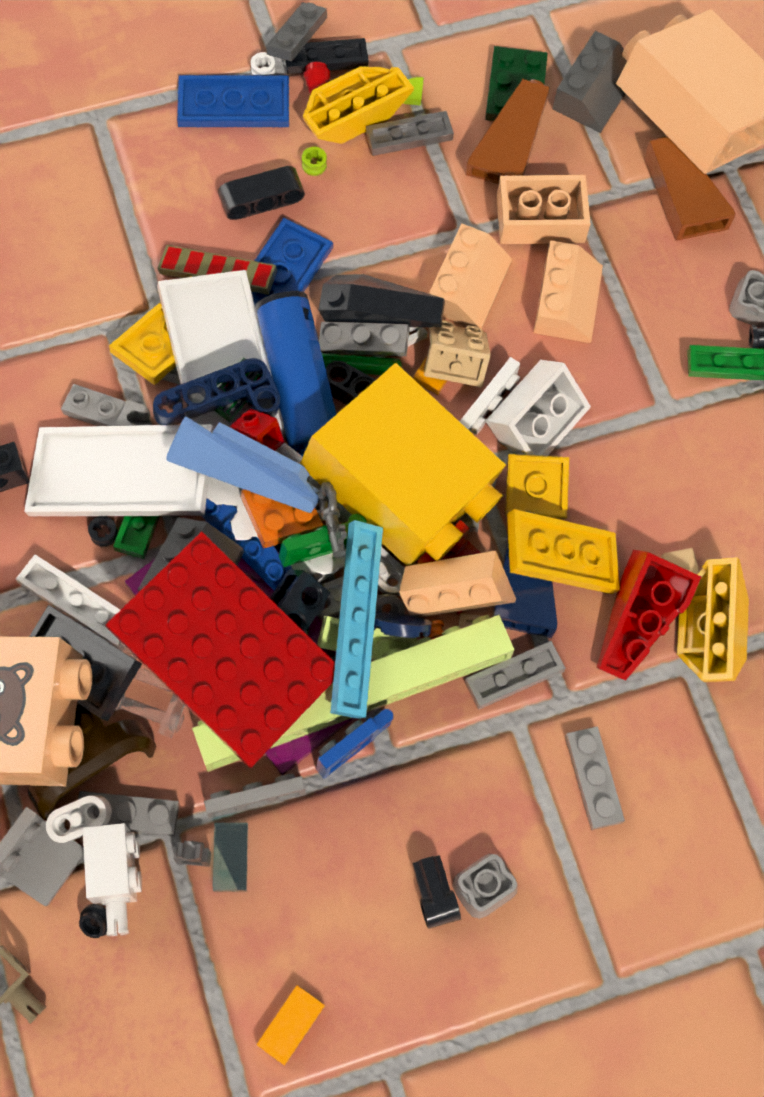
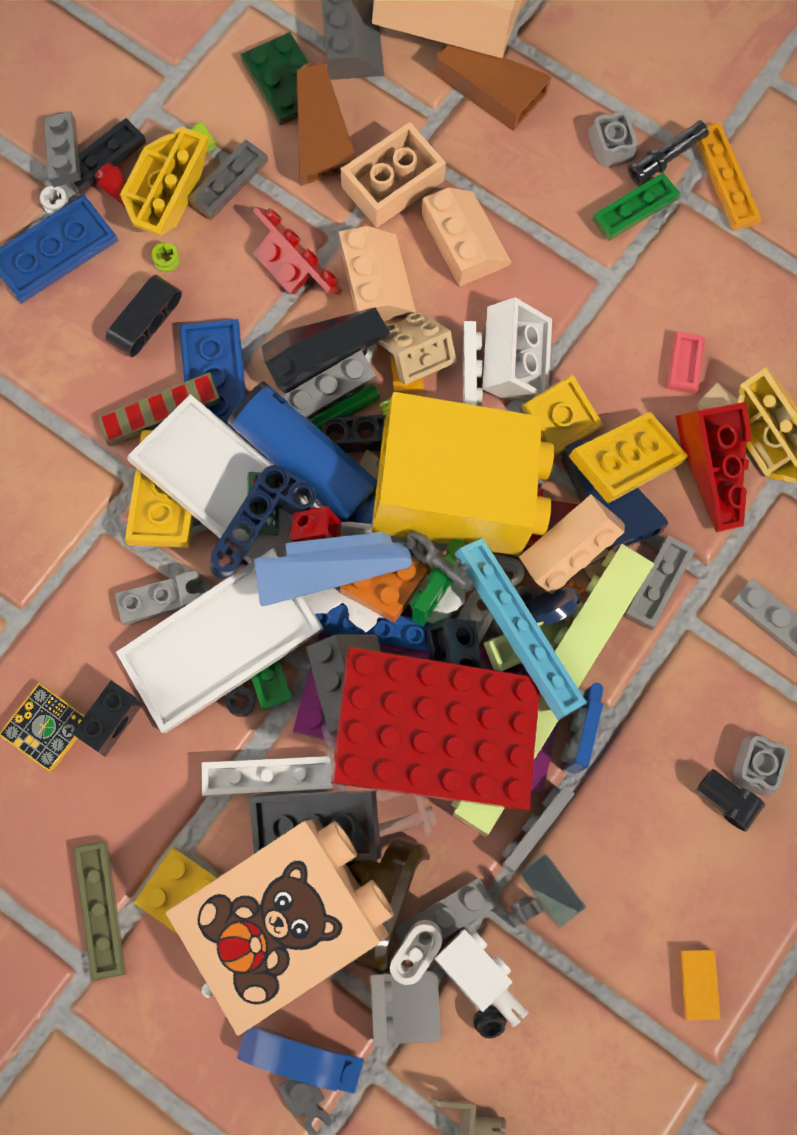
camera: 35 degrees left, 5 degrees up
(409, 221) = (288, 259): none -> bracket
(679, 515) = (686, 362): none -> coral tile

